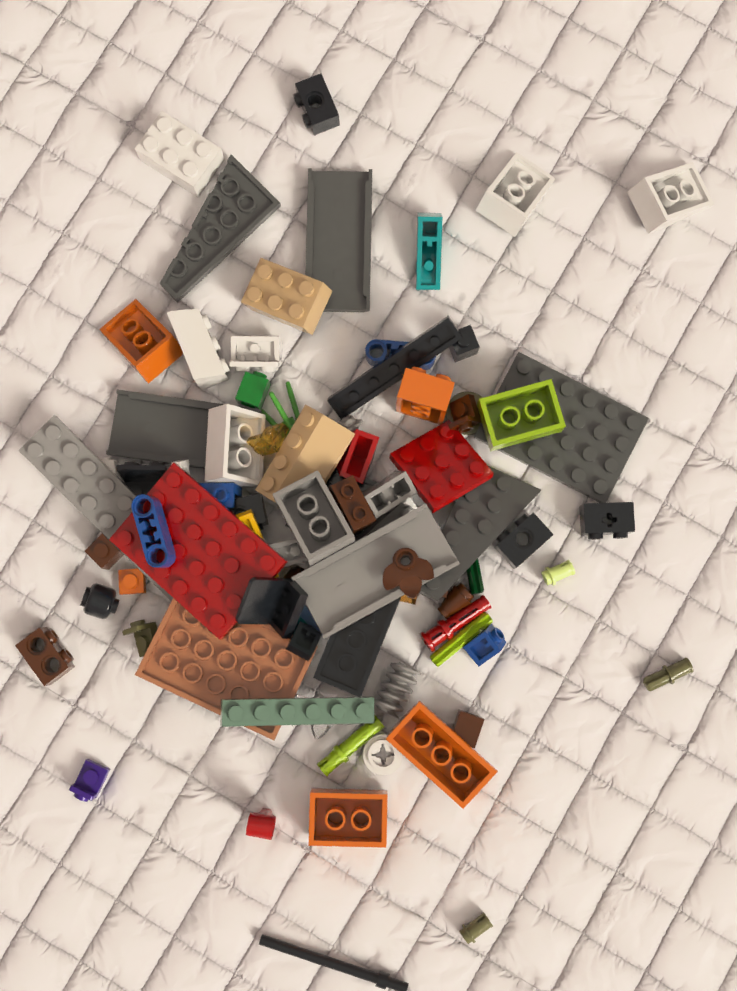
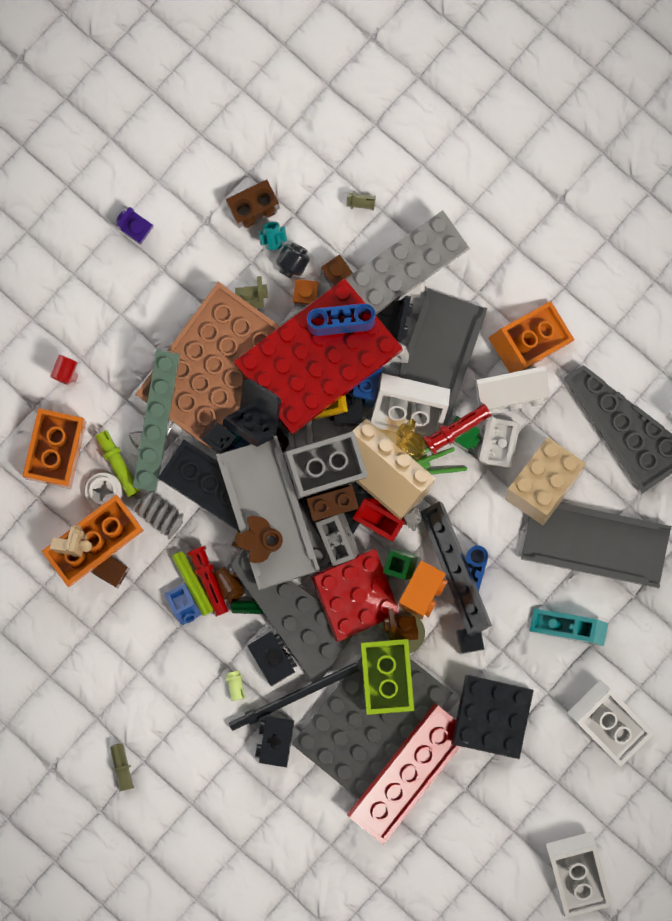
camera: 100 degrees right, 0 degrees up
(25, 542) = (360, 201): none -> olive pin
(76, 627) = (272, 235): none -> teal gear
(256, 401) = (447, 434): none -> red pin
(400, 426) = (400, 564): none -> green brick
(450, 773) = (74, 545): none -> tan piece
(535, 308) = (492, 717): none -> black plate
(584, 548) = (252, 716): none -> black bar
(611, 379) = (406, 775): none -> plate

